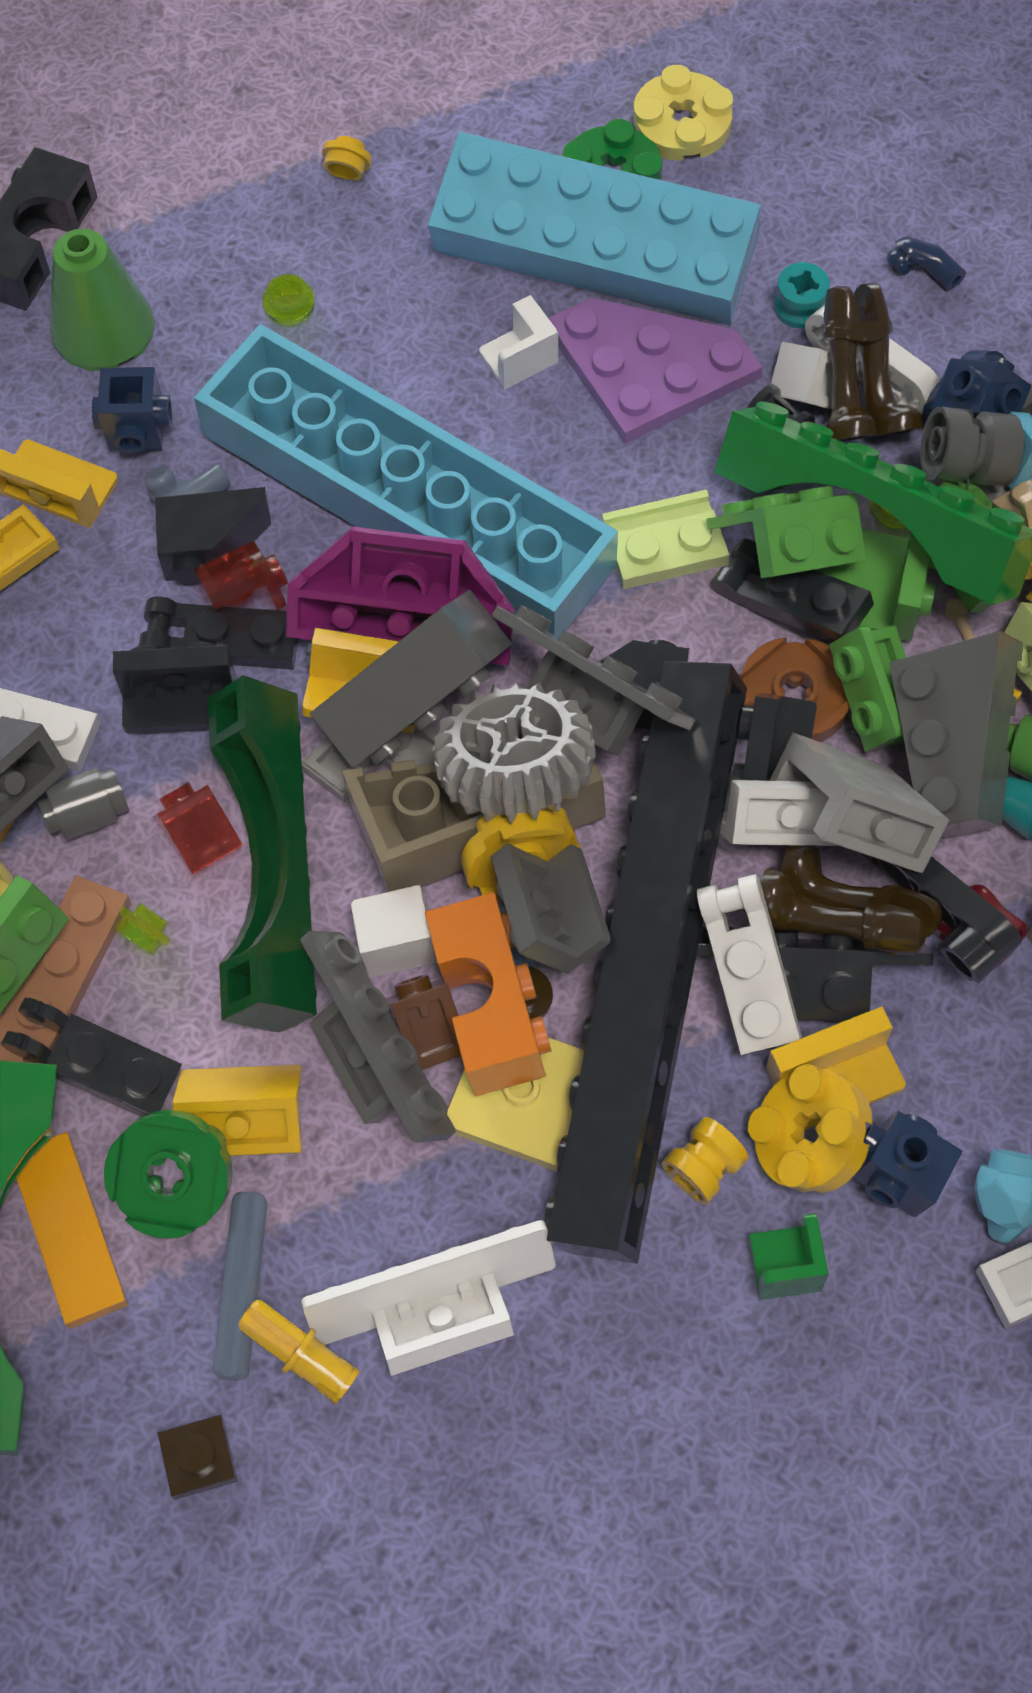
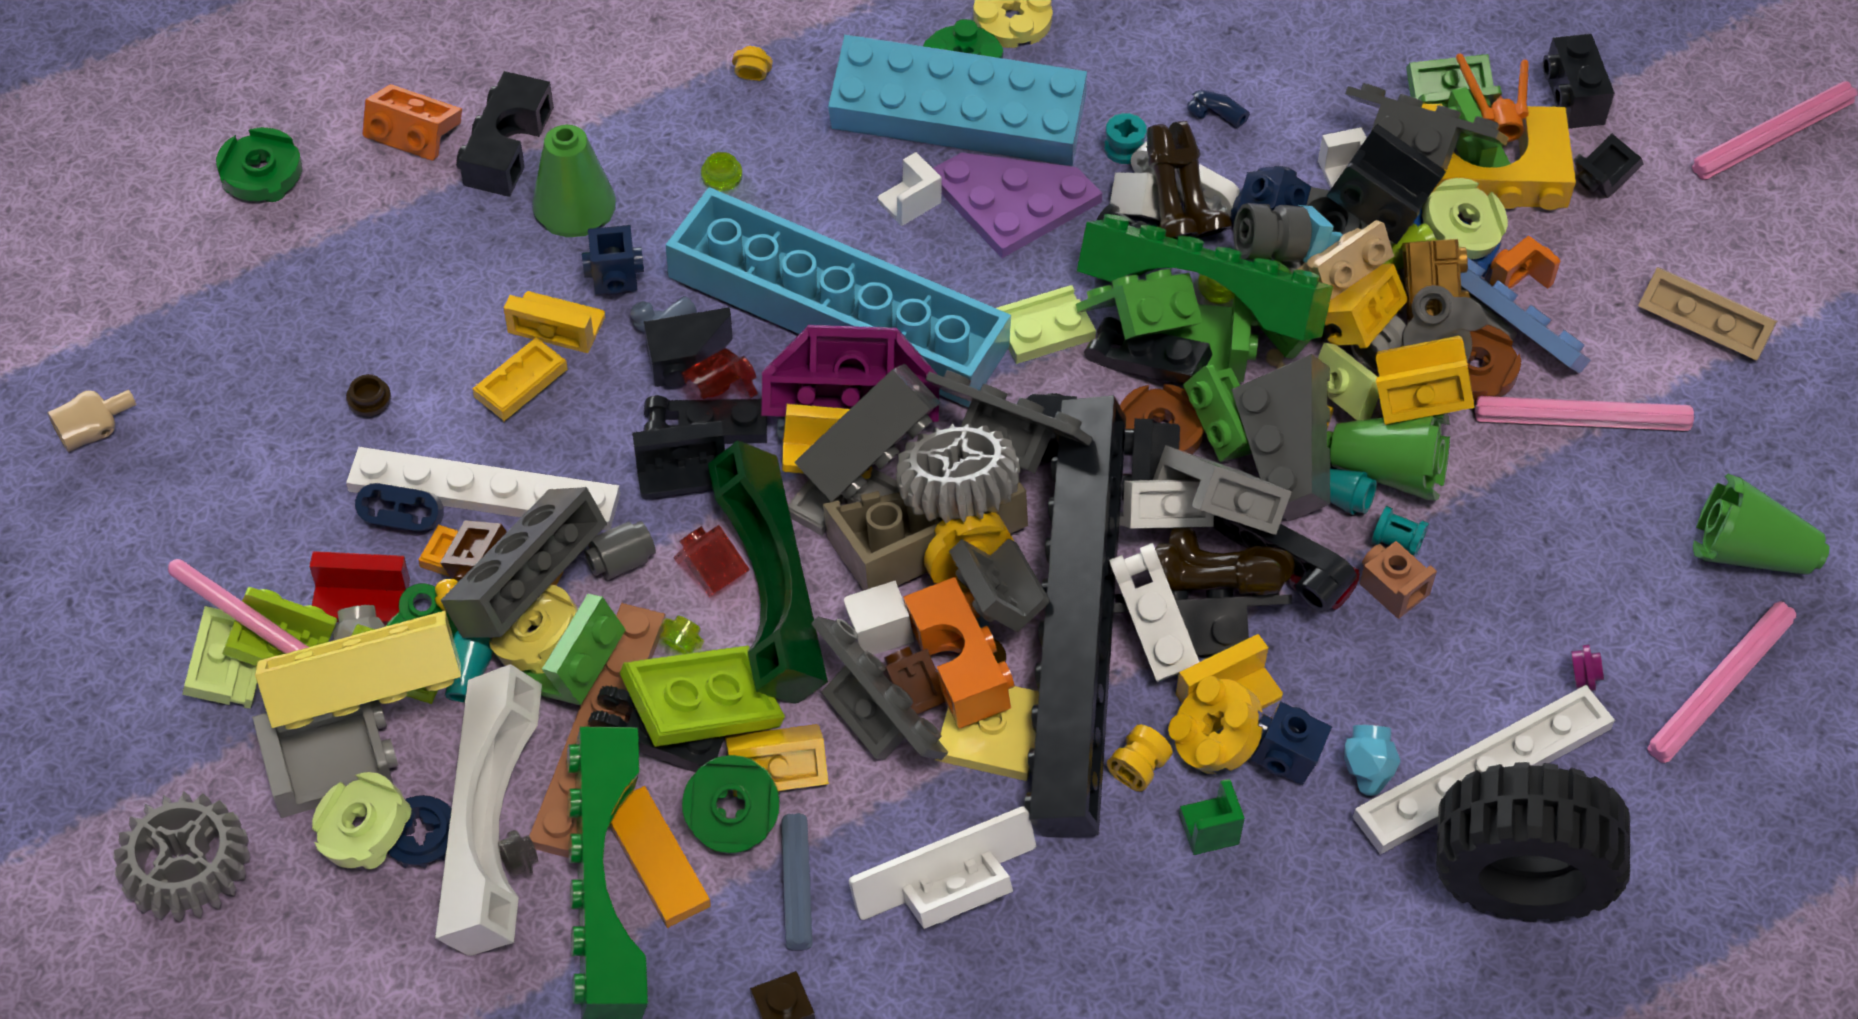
camera: 10 degrees left, 10 degrees down
(147, 1020) = (699, 696): none -> lime tile
(298, 1351) = (849, 918): yellow axle -> none

